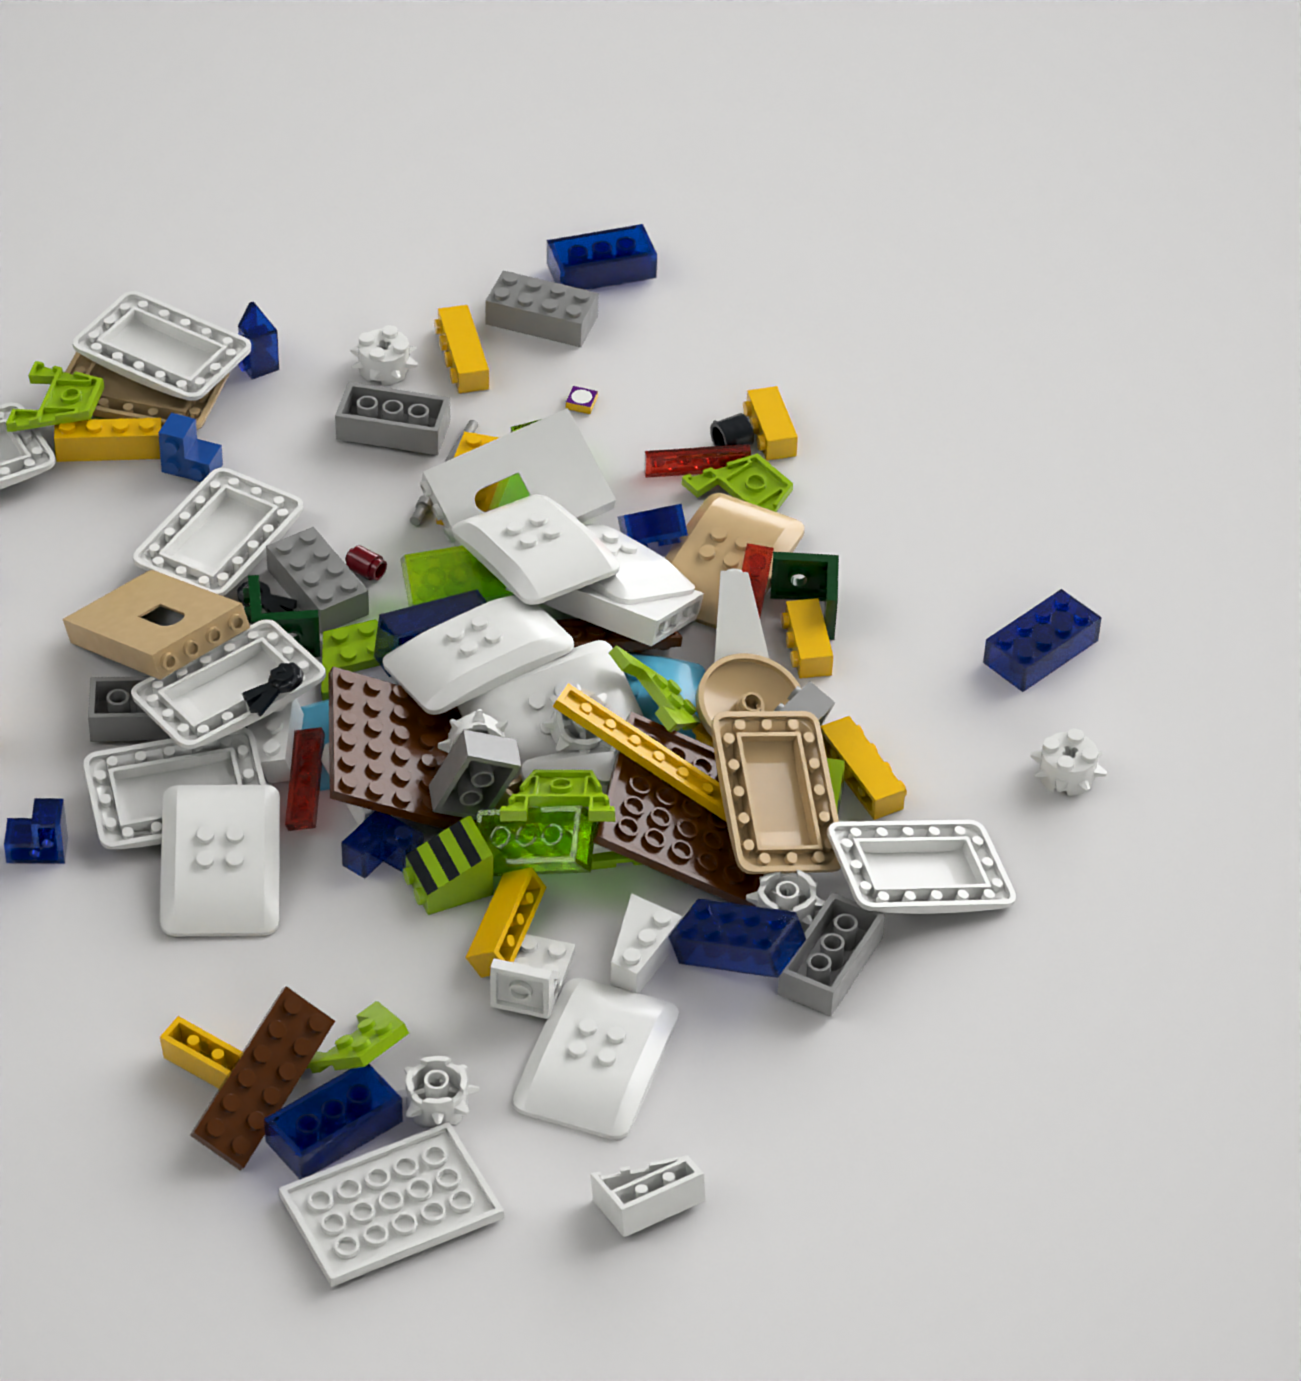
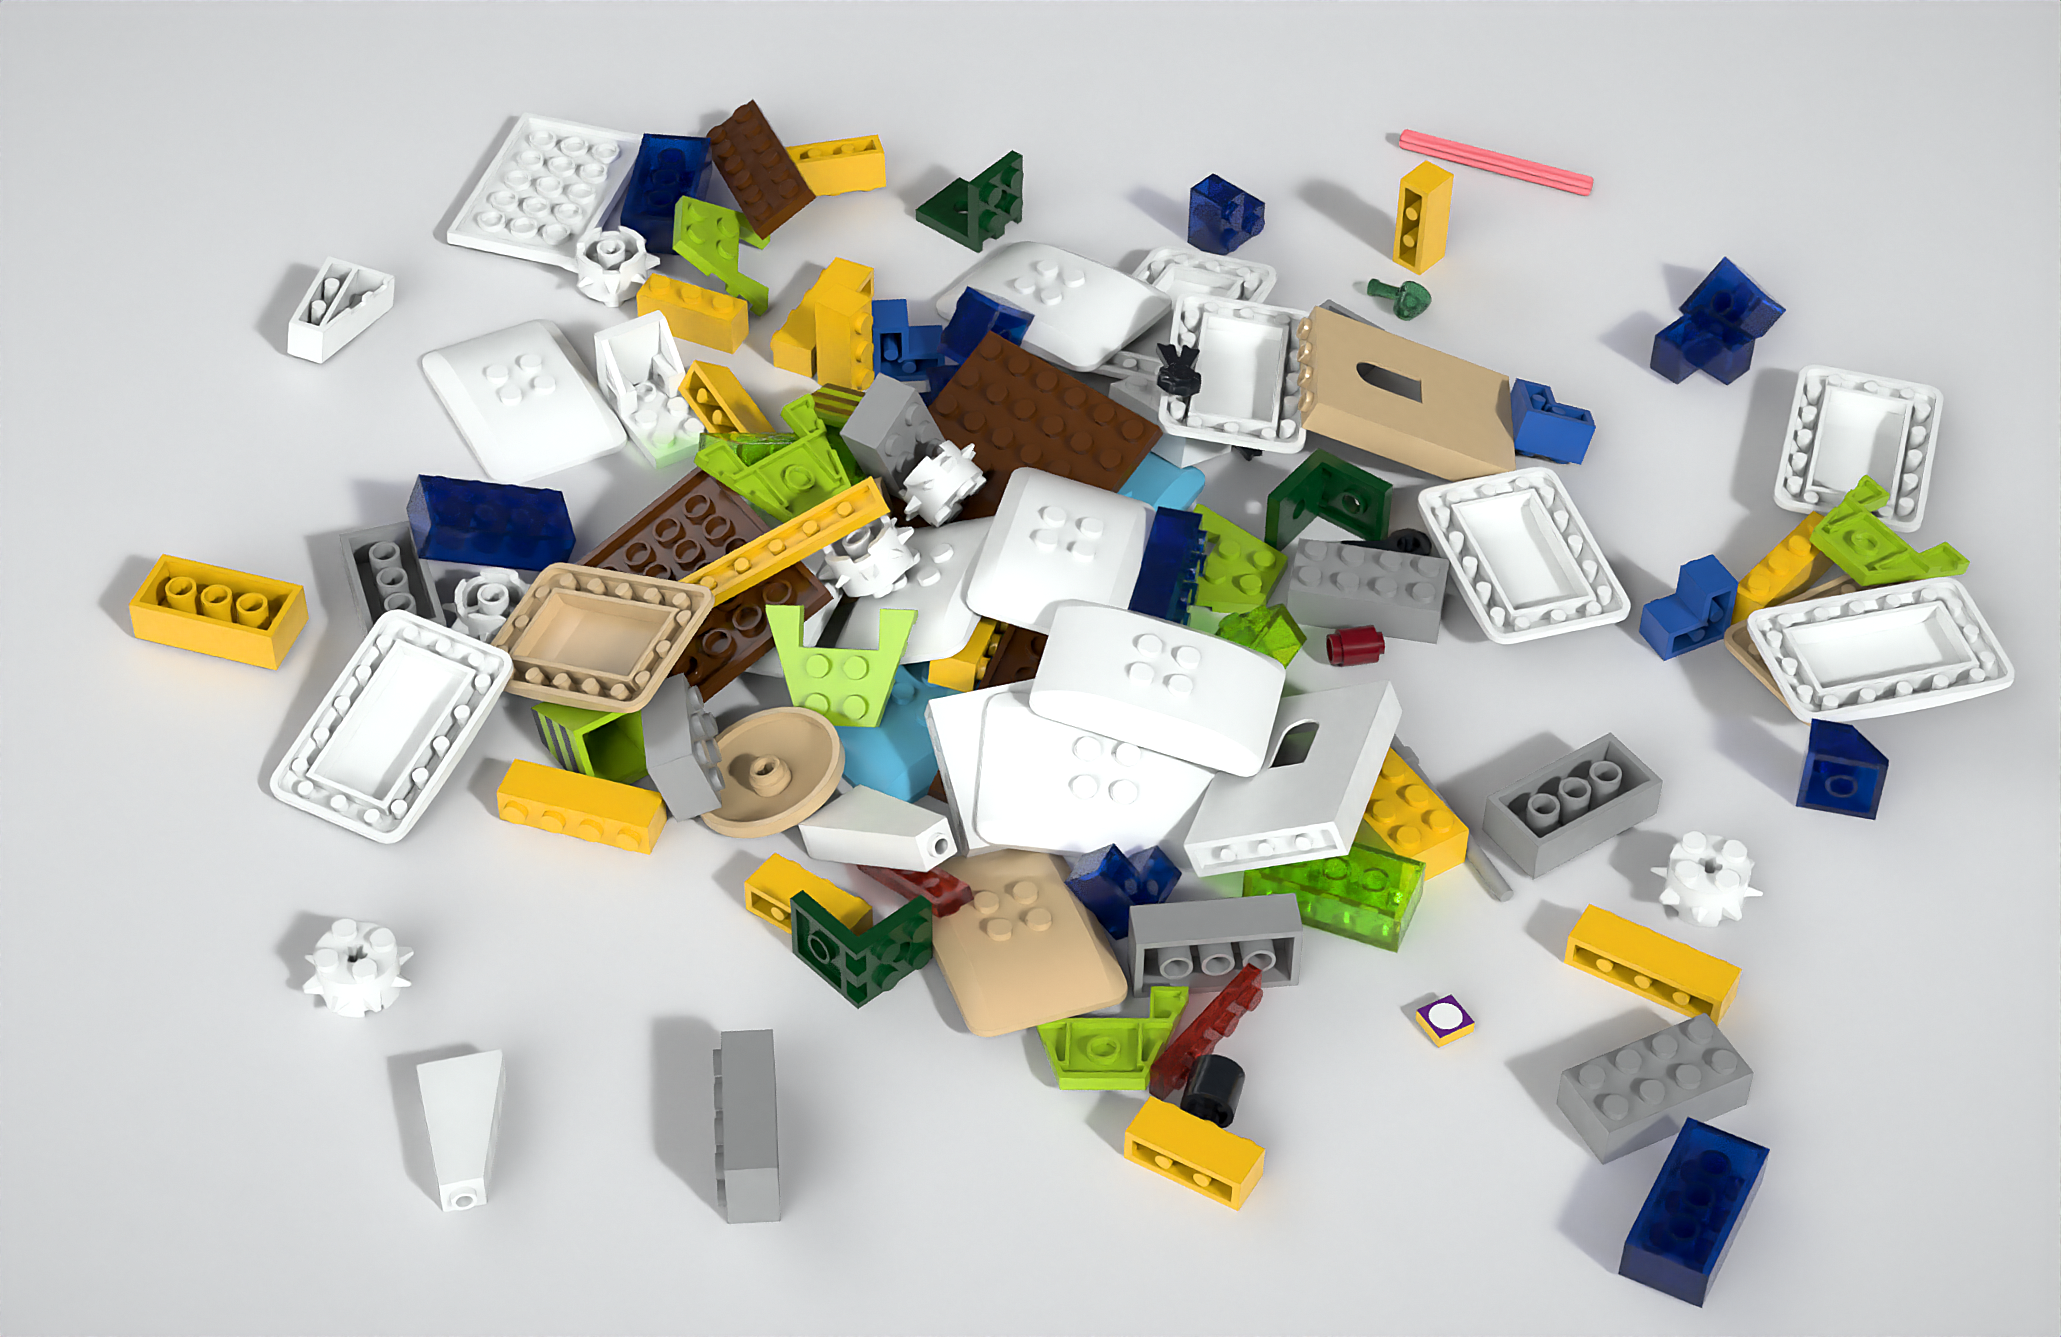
camera: 135 degrees right, 0 degrees up
(21, 716) = (1409, 299): none -> clear green bar
(89, 581) = (1547, 426): none -> blue brick
(161, 958) = (989, 199): none -> dark green bracket
(303, 842) = (975, 316): none -> clear blue brick
(346, 894) = (903, 349): none -> blue brick
(356, 961) = (795, 342): none -> yellow brick
(392, 896) = (844, 338): none -> yellow brick
(430, 1018) = (696, 312): none -> yellow brick
(642, 944) = (592, 488): white wedge -> none
(650, 472) = (1212, 941): none -> light grey brick
(944, 1017) = (219, 611): none -> yellow brick
(963, 552) = (746, 1127): none -> light grey brick
(1042, 640) = (543, 1102): clear blue brick -> none
(1090, 660) = (462, 1118): none -> white slope

